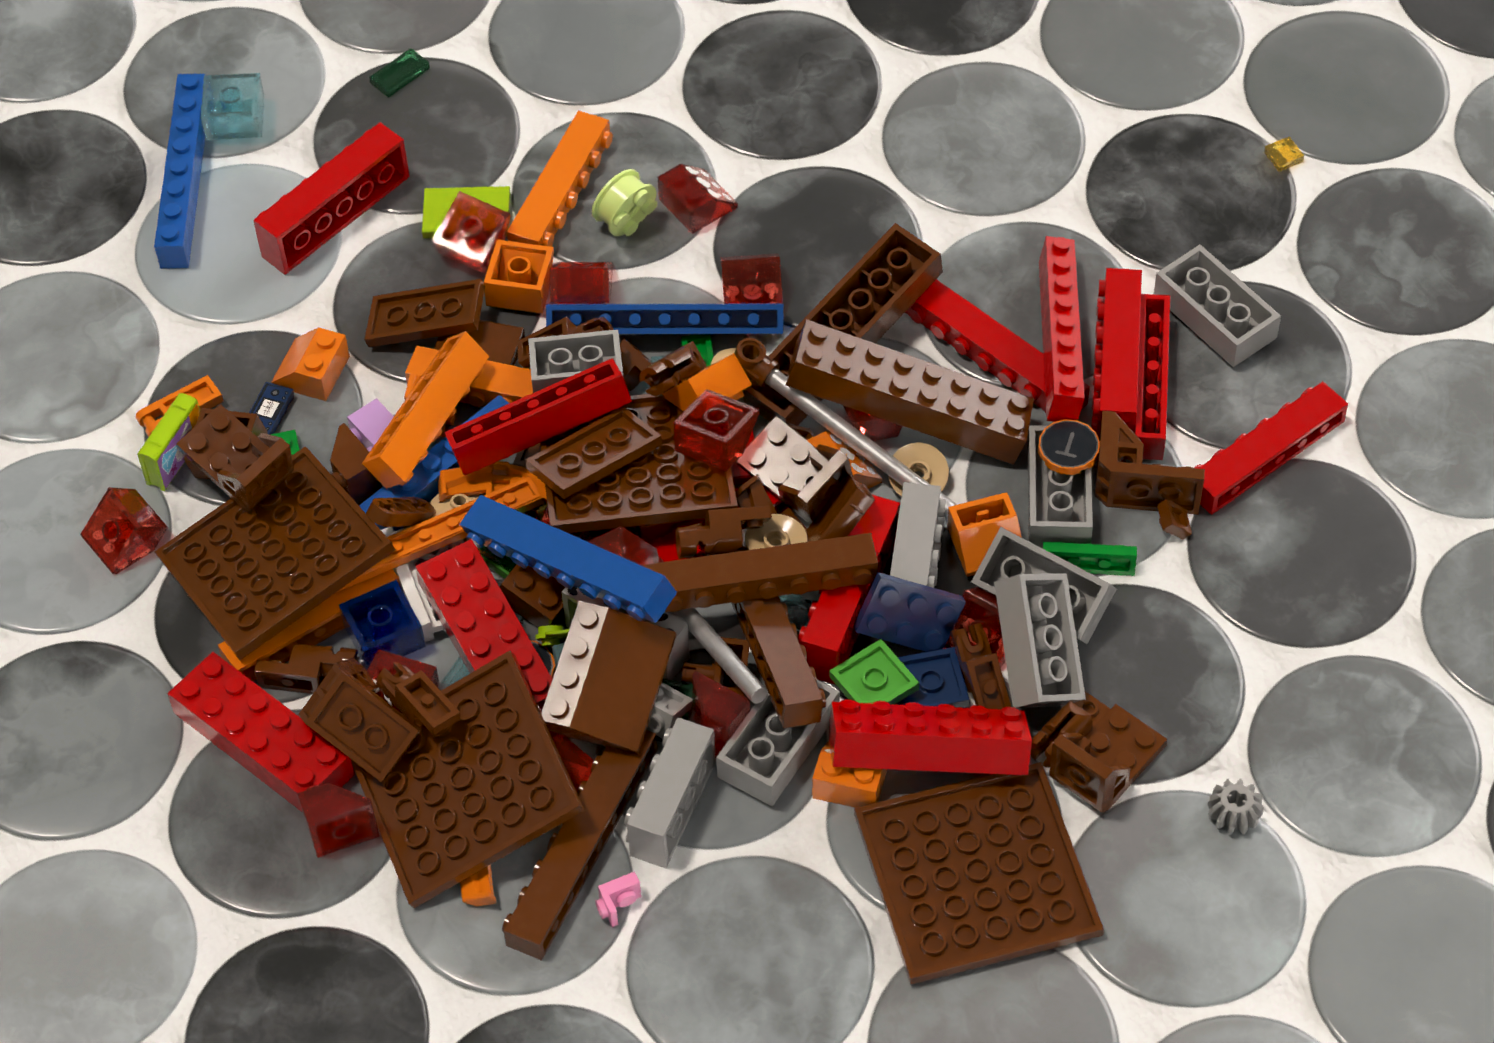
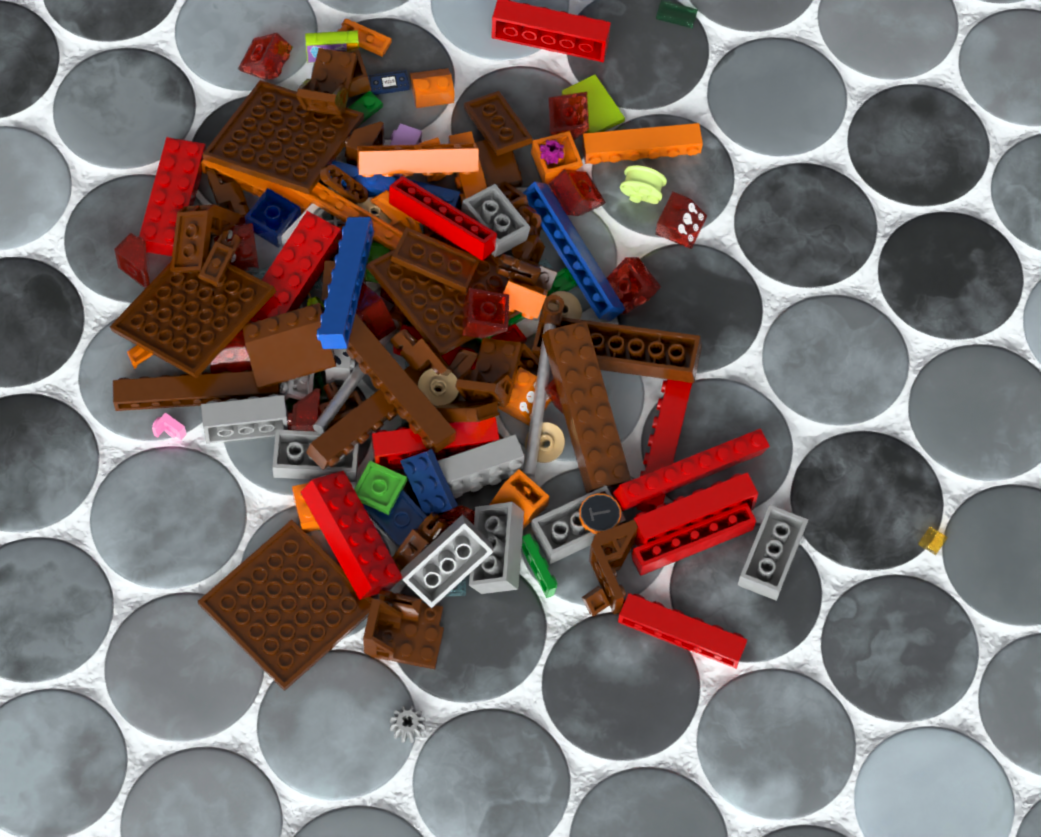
camera: 55 degrees right, 10 degrees up
(519, 264) = (552, 151): none -> magenta gear

